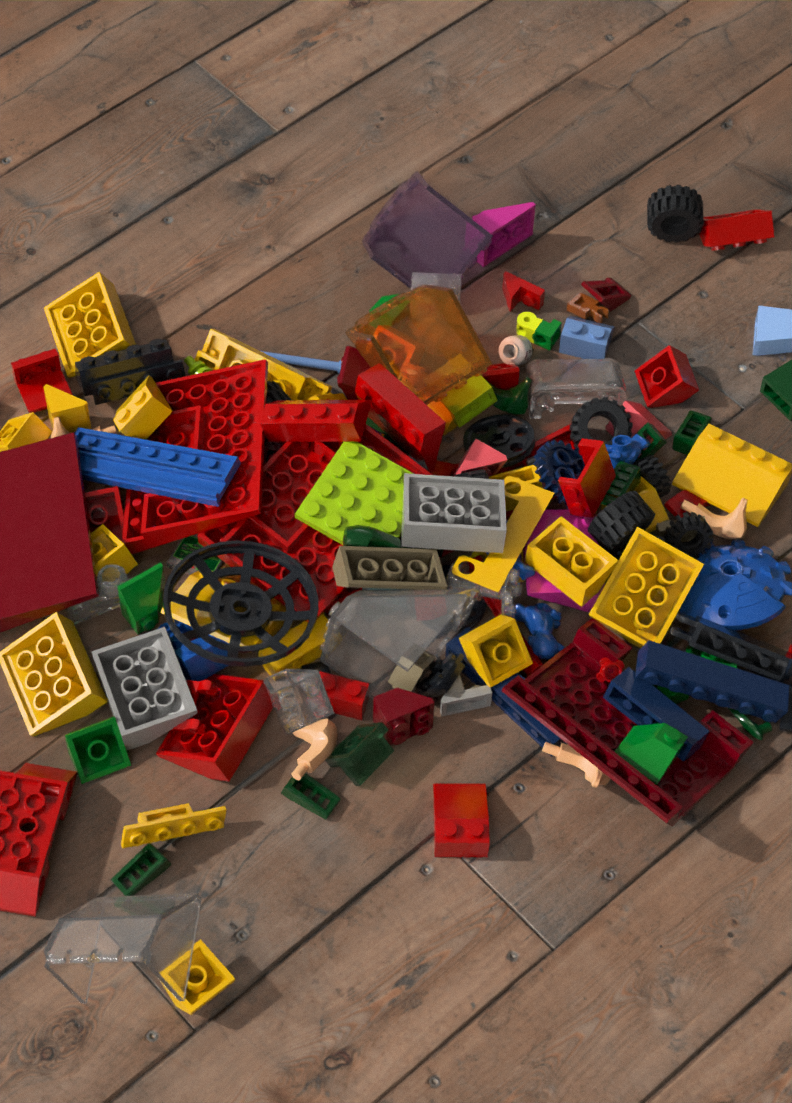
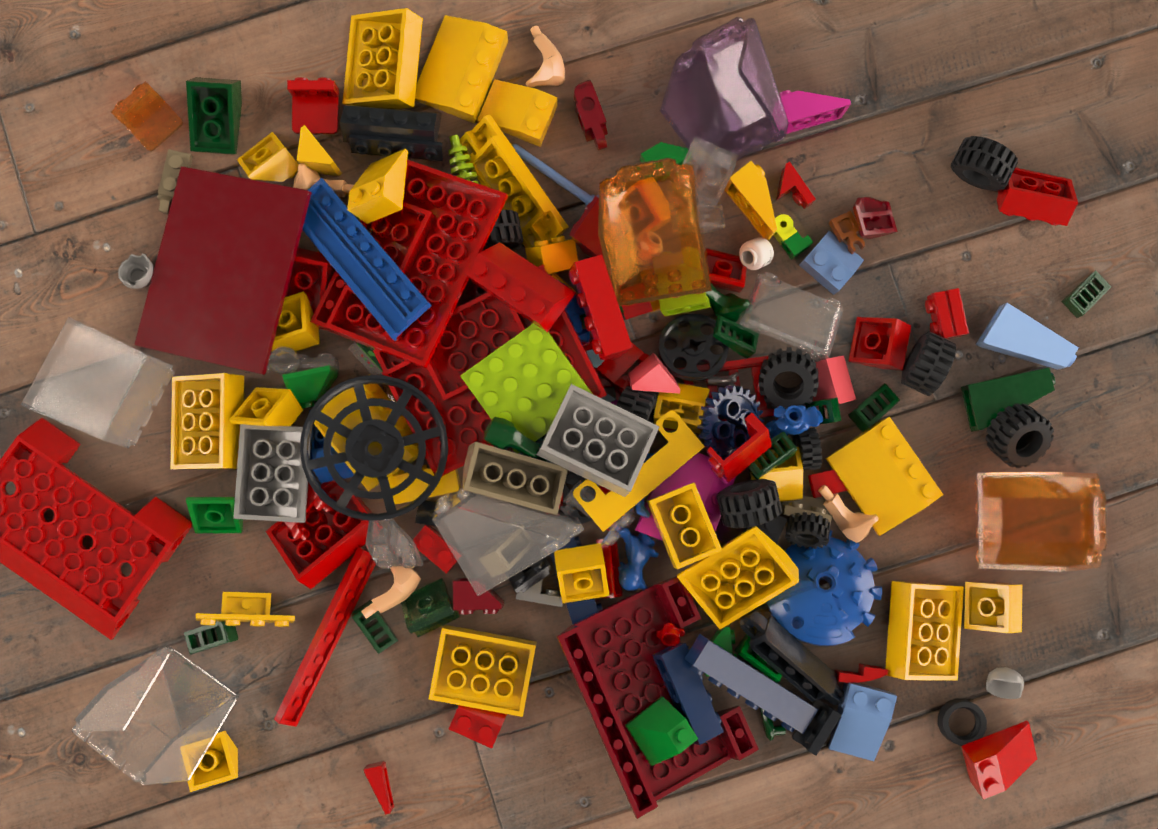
camera: 20 degrees right, 30 degrees up
(115, 626) = (268, 408): none -> yellow slope
(168, 306) = (461, 67): none -> yellow slope
(243, 318) = (520, 110): none -> yellow slope
(253, 283) = (552, 69): none -> light nougat animal
(266, 822) = (326, 638): none -> red plate
(306, 302) = (590, 114): none -> dark red piece
(388, 933) = (379, 781): none -> red slope
(442, 776) = (482, 670): none -> yellow slope
(490, 308) = (751, 195): none -> yellow slope
(535, 416) = (750, 337): none -> dark green slope
(712, 337) = (947, 314): none -> red brick
(718, 371) = (928, 363): none -> black tyre

